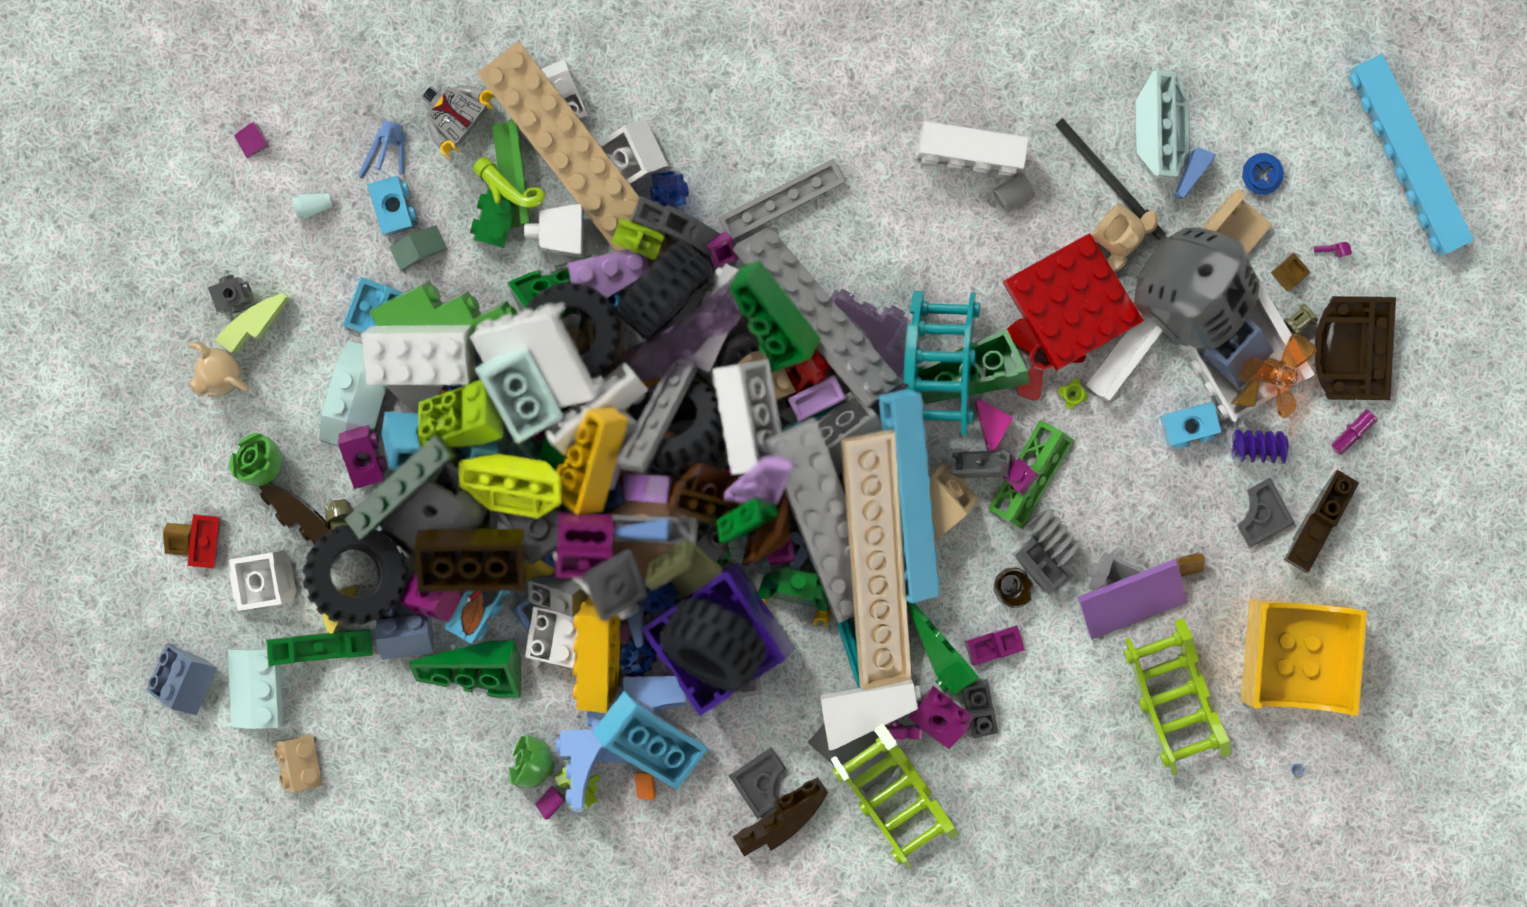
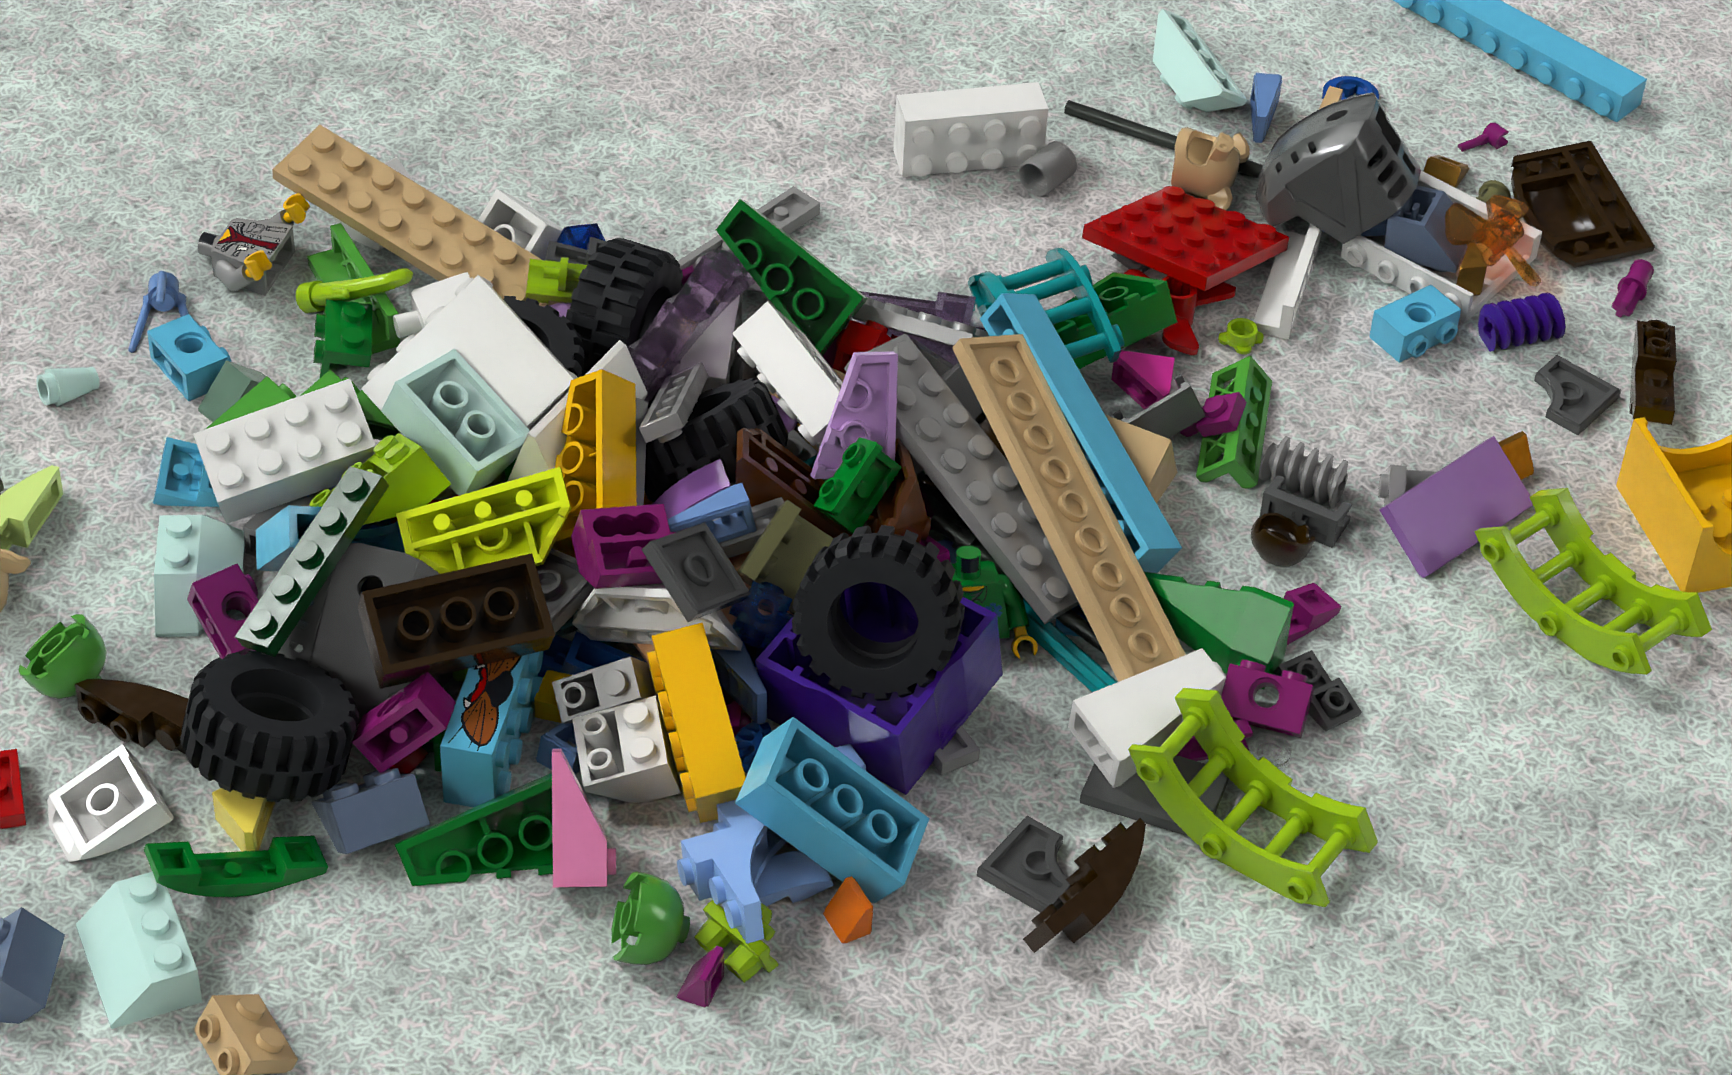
camera: 25 degrees left, 45 degrees down
(509, 697) = (577, 835): none -> bright pink slope

